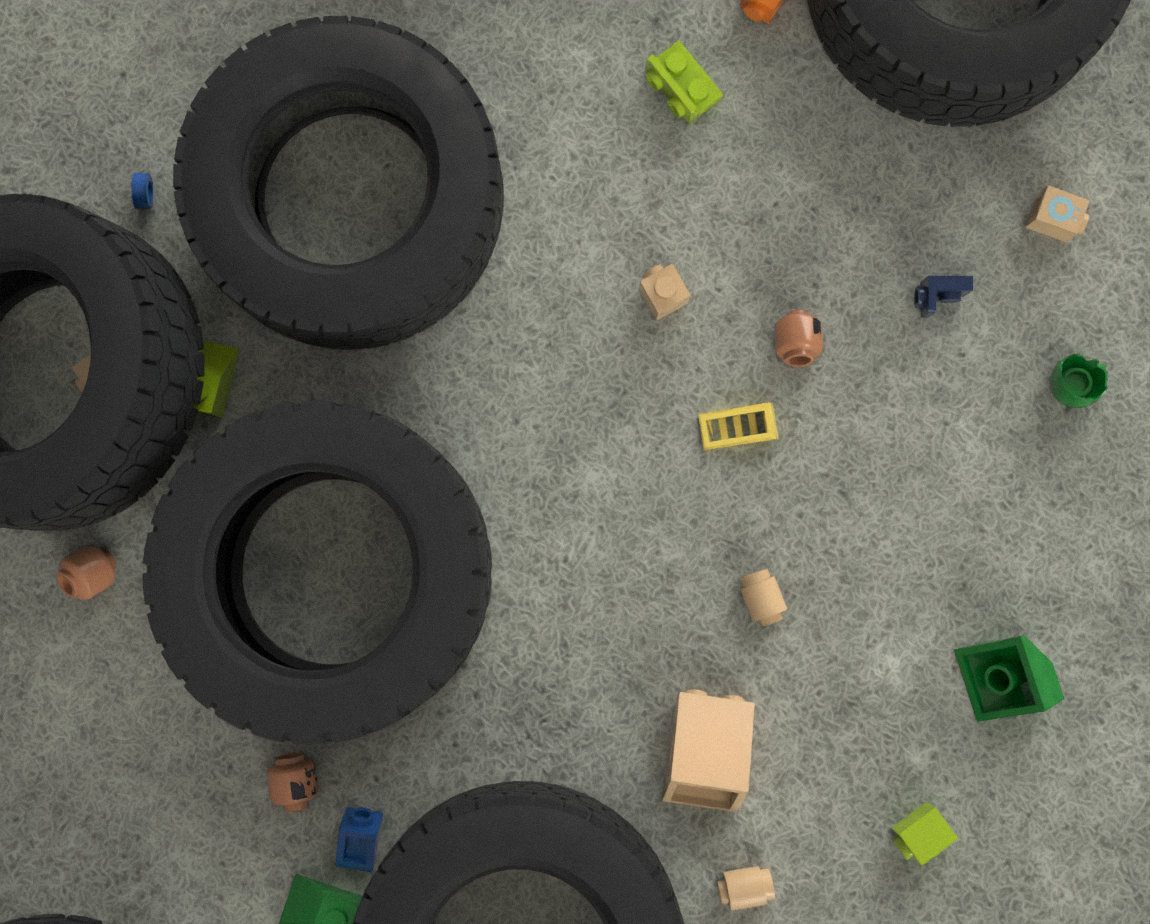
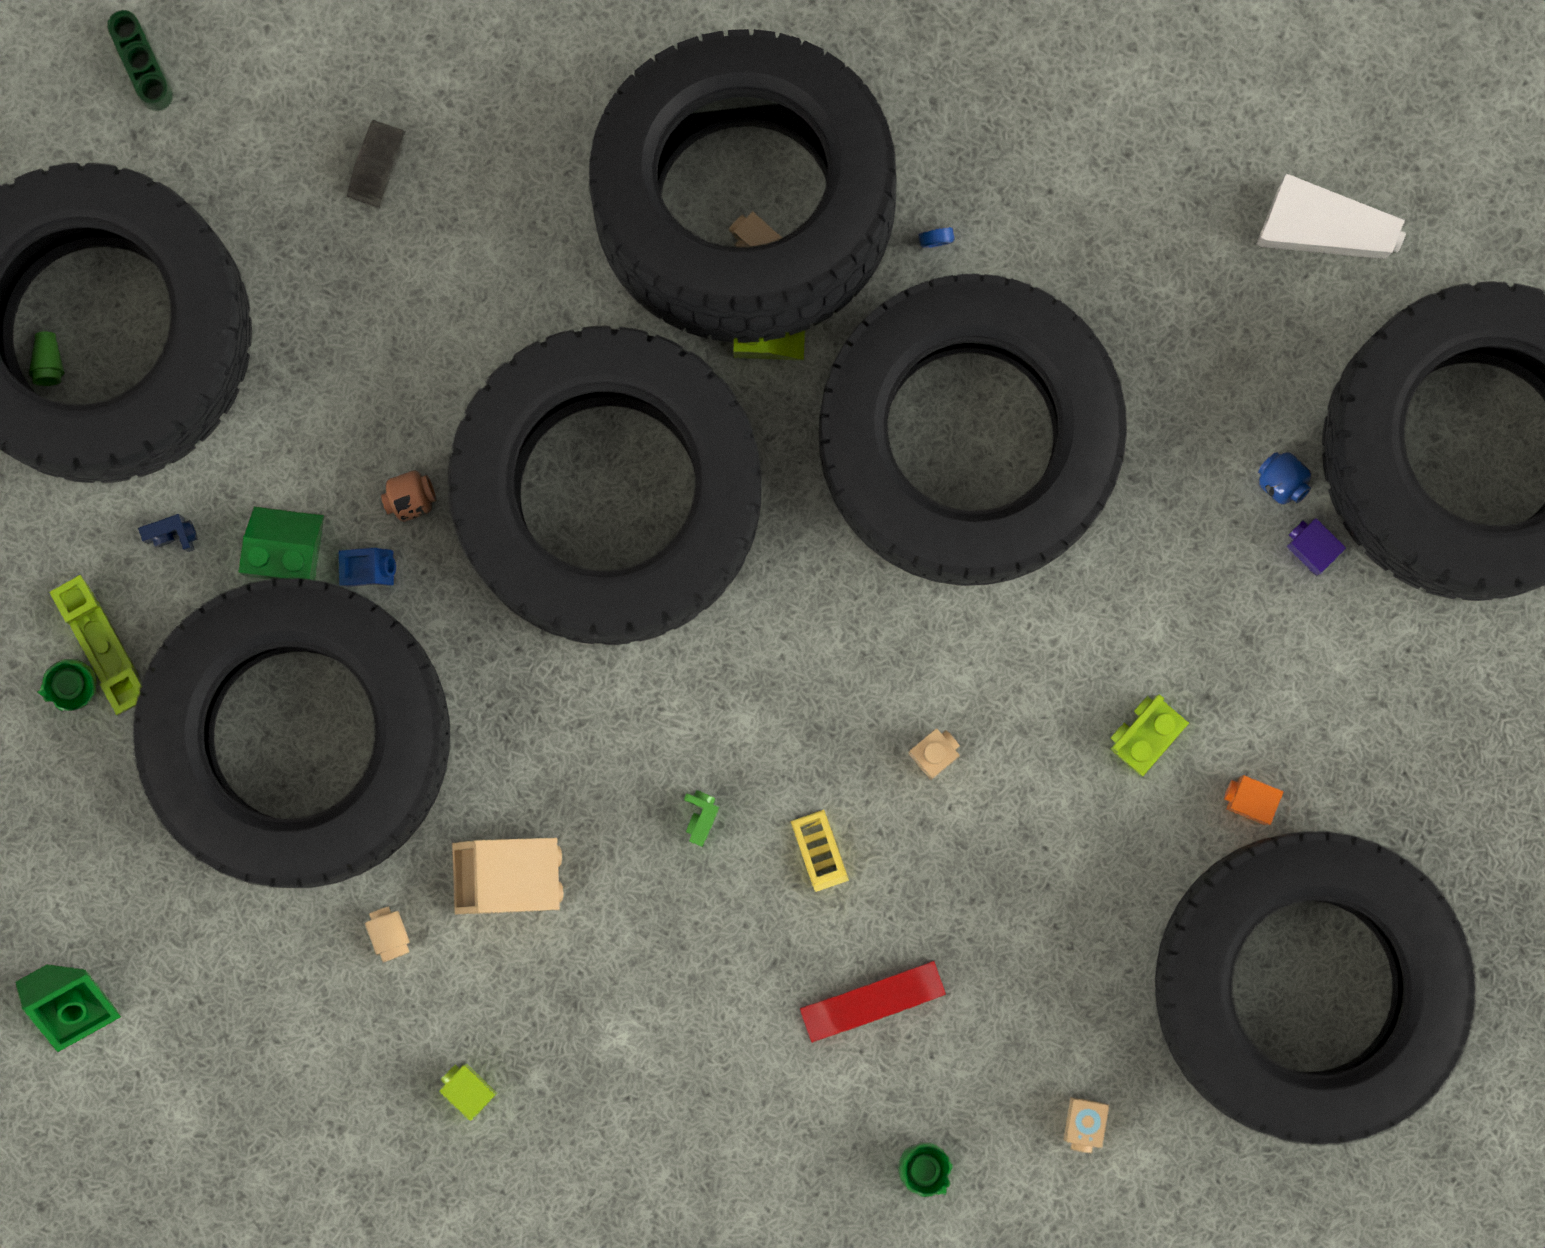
camera: 75 degrees right, 0 degrees up
(86, 572) = (564, 266): nougat head -> none
(691, 539) = (701, 824): none -> bright green bracket
(763, 597) = (660, 902): tan brick -> none
(798, 338) = (914, 891): nougat head -> none
(901, 402) = (872, 1001): none -> red slope
(947, 288) = (990, 1027): dark blue bracket -> none
(1008, 678) = (627, 1148): green slope -> none

